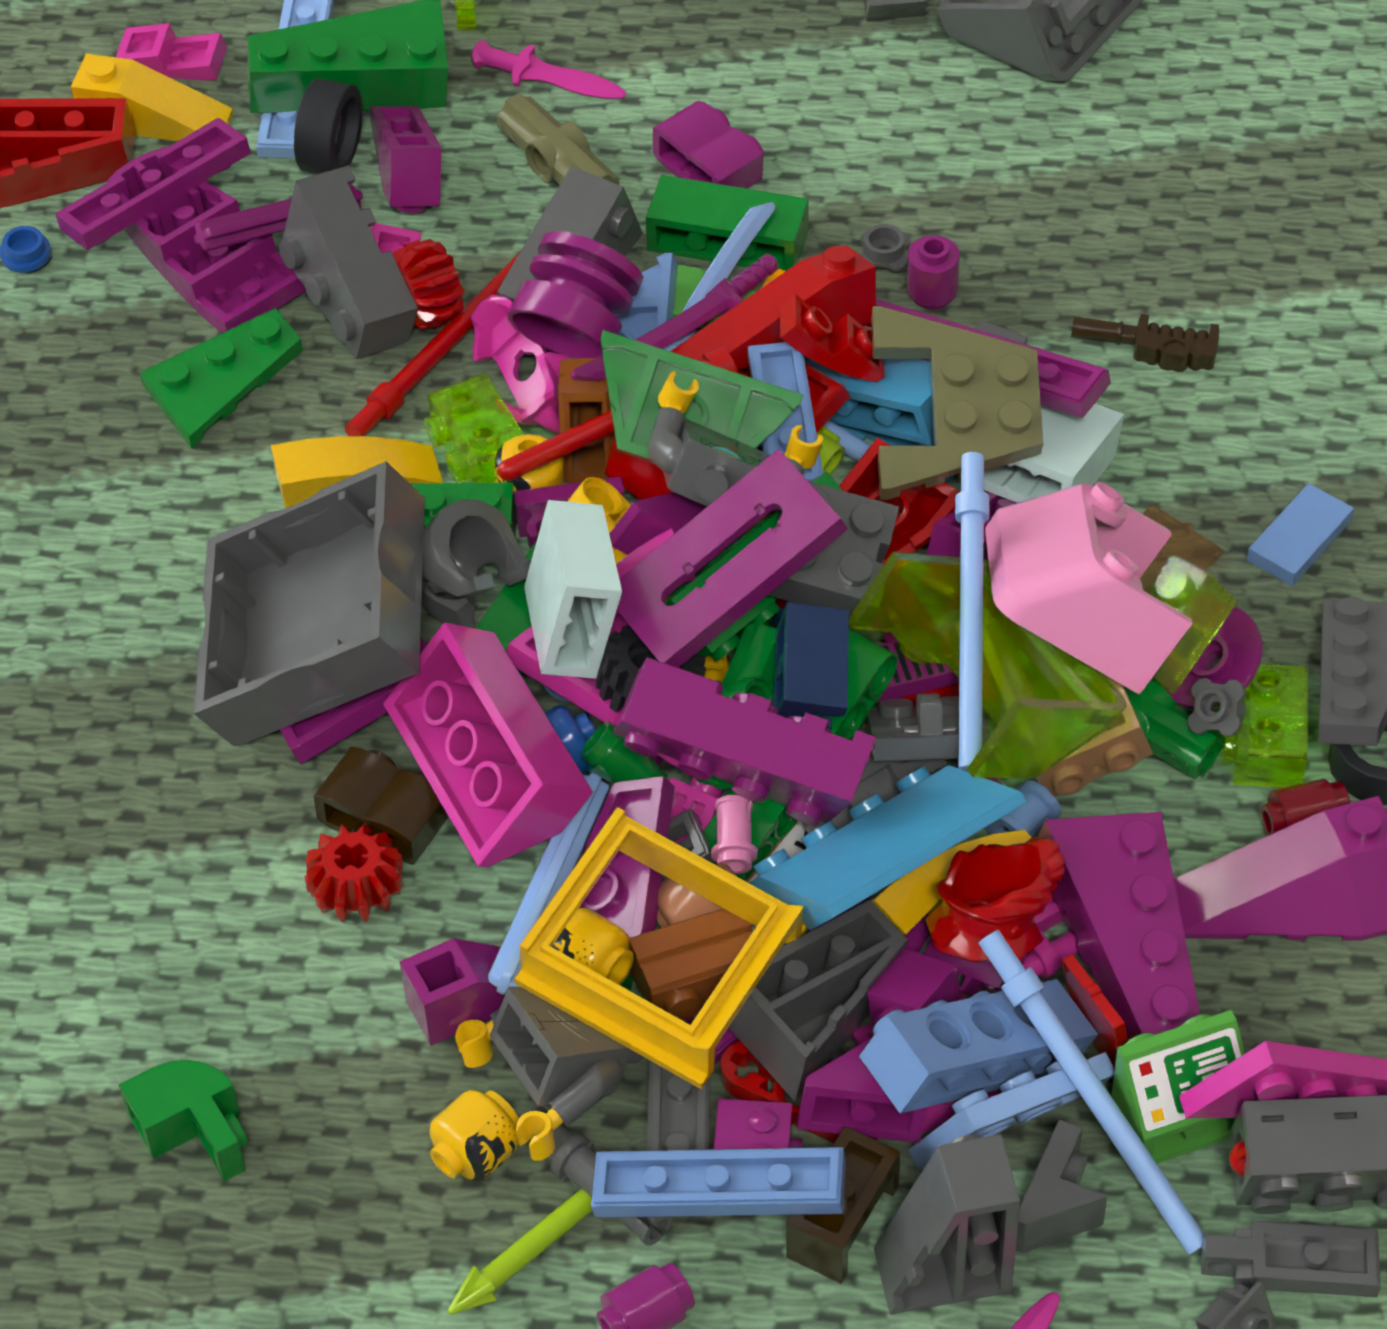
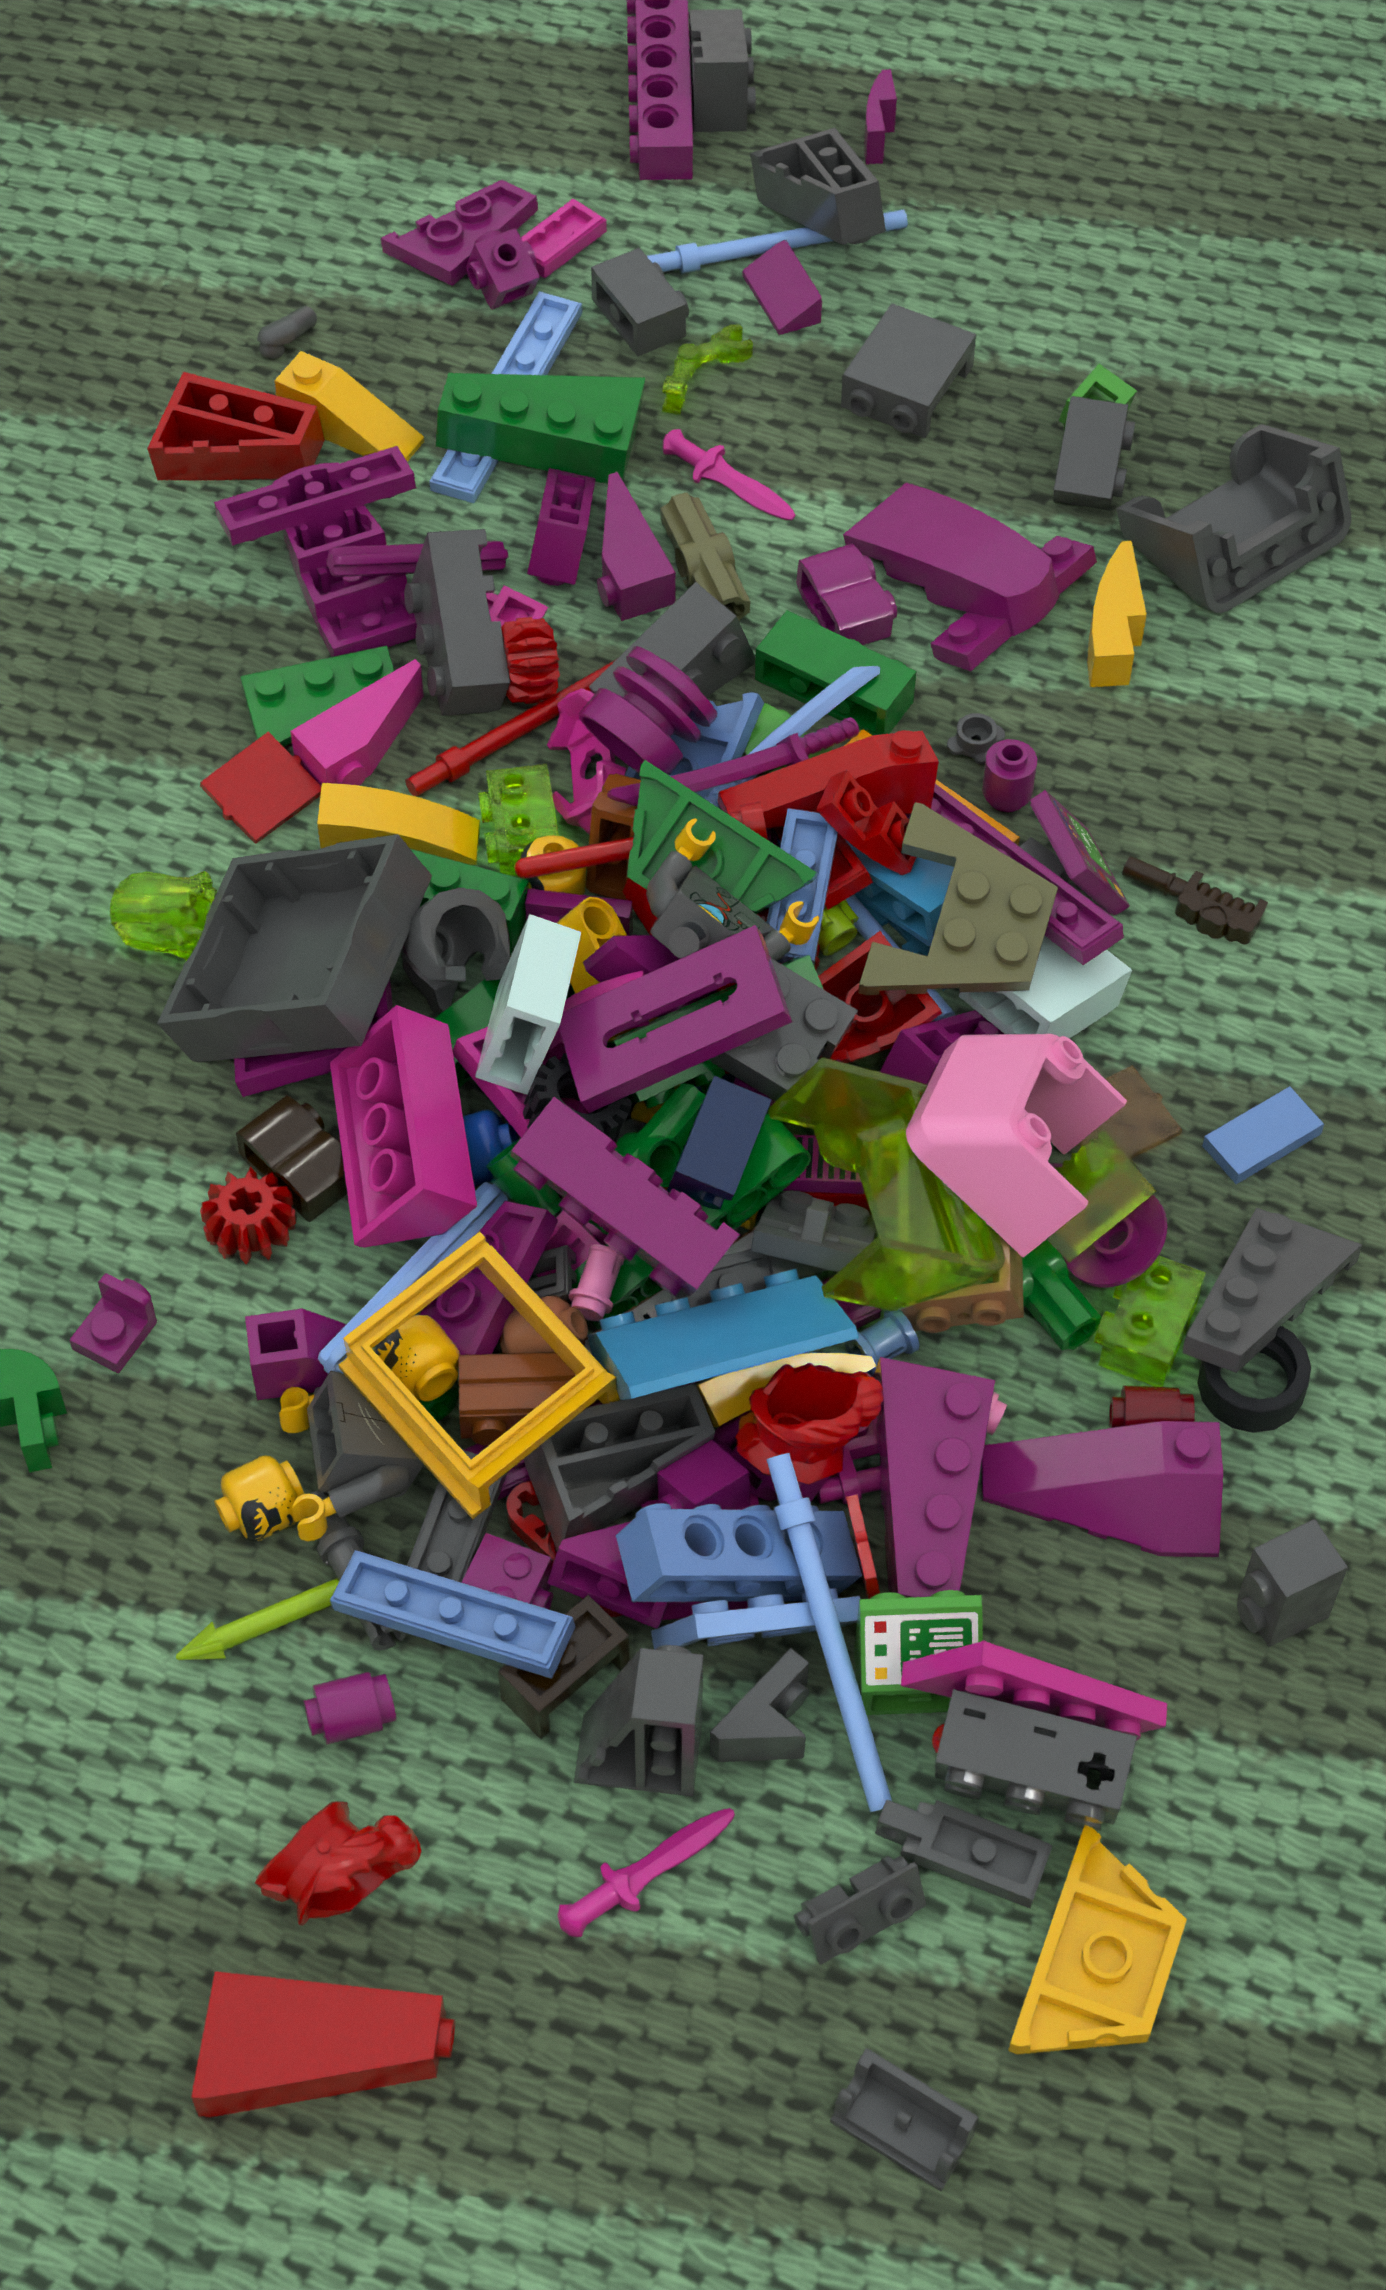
camera: 15 degrees right, 5 degrees up
(24, 249) = (183, 528): blue plate -> none
(55, 43) = (285, 330): none -> dark grey arm
(154, 610) = (162, 911): none -> clear neon green piece
(175, 57) = (379, 365): dark pink slope -> none
(202, 470) = (261, 787): none -> red piece
(258, 1011) = (115, 1323): none -> magenta bracket
(278, 394) = (356, 733): none -> dark pink slope
(327, 126) = (496, 481): black tyre -> none
(491, 173) = (634, 566): none -> magenta slope
(814, 94) = (969, 566): none -> magenta slope
(972, 513) = (921, 1036): light blue bar -> none
(975, 111) = (1116, 621): none -> yellow slope
(1023, 317) = (1078, 853): none -> magenta tile
(1232, 711) = (1111, 1294): dark grey plate -> none

